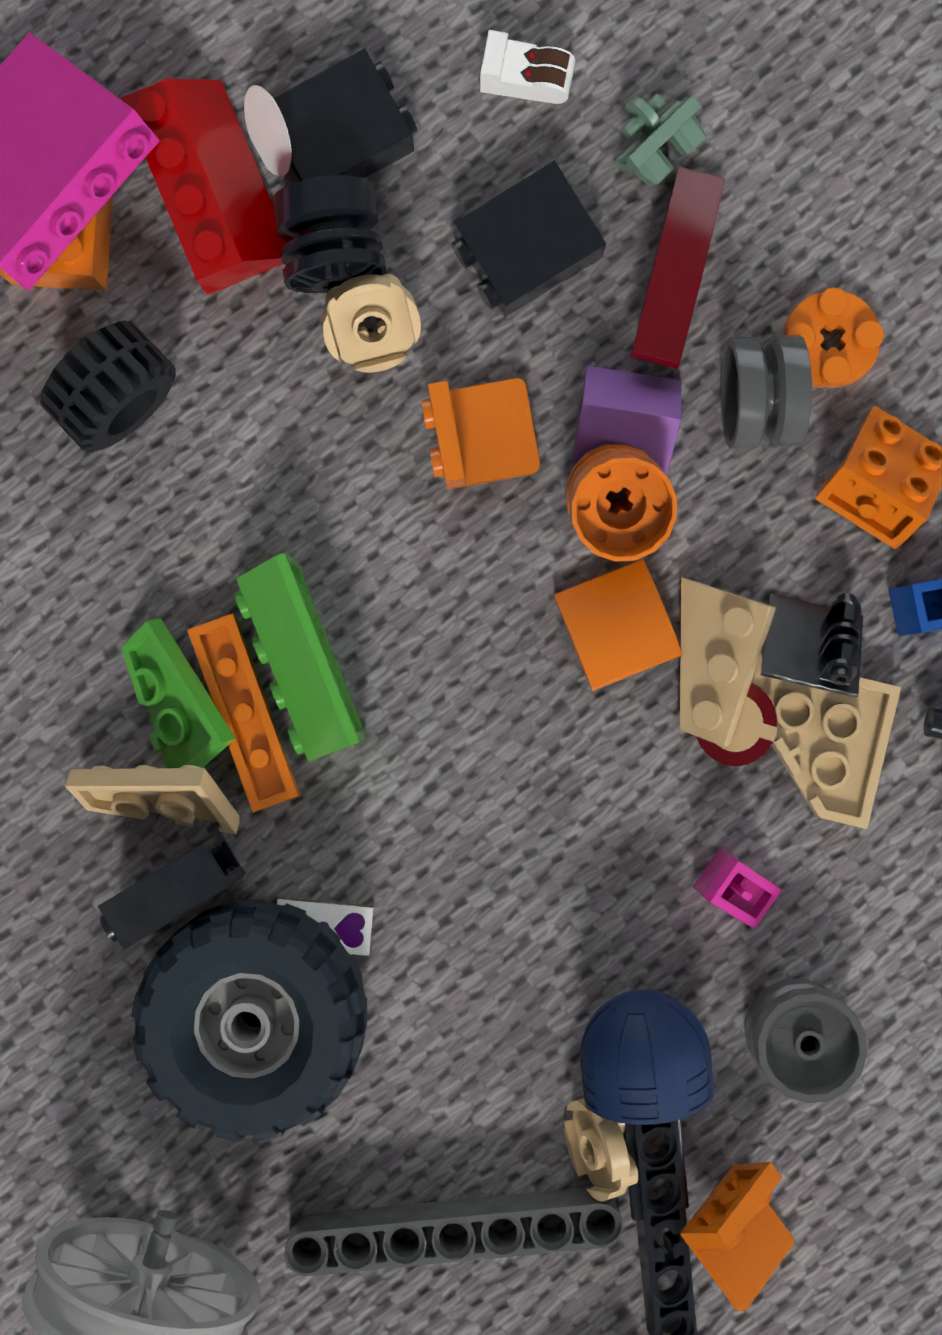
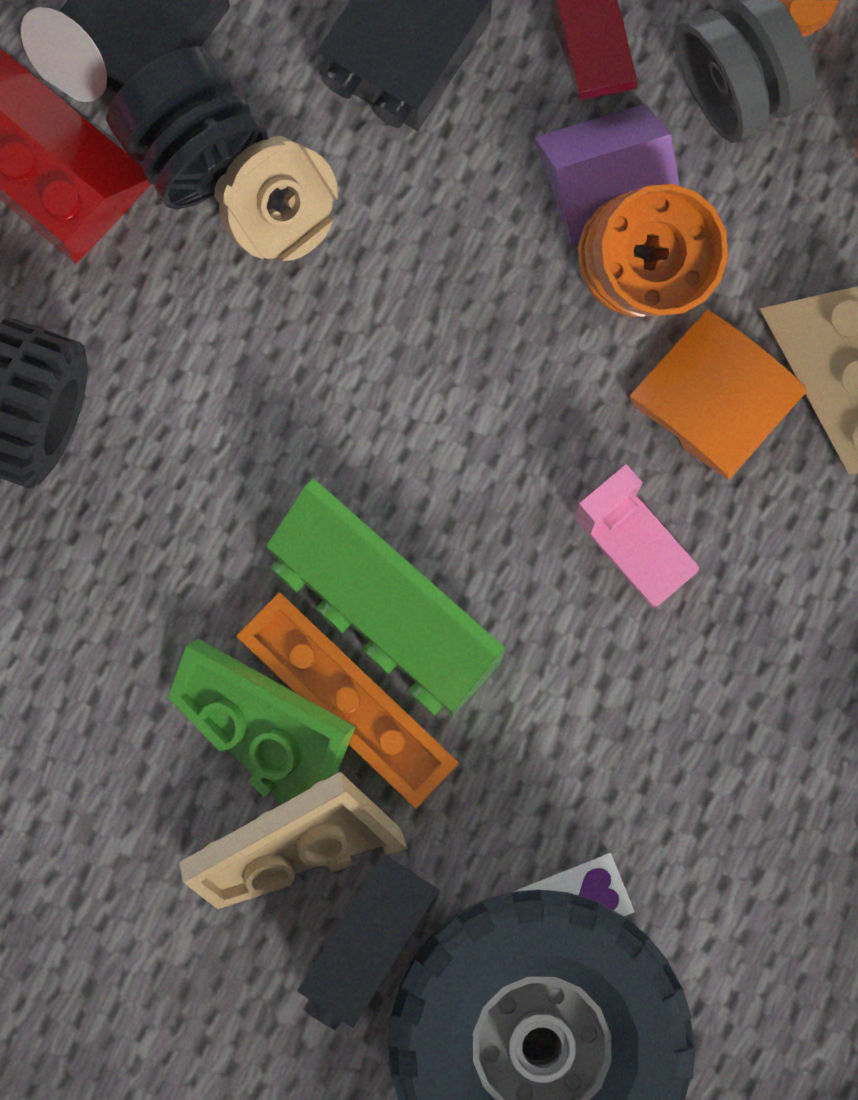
camera: 25 degrees left, 10 degrees down
(481, 432) = (457, 260): orange bracket -> none
(504, 702) = (635, 538): none -> bright pink bracket

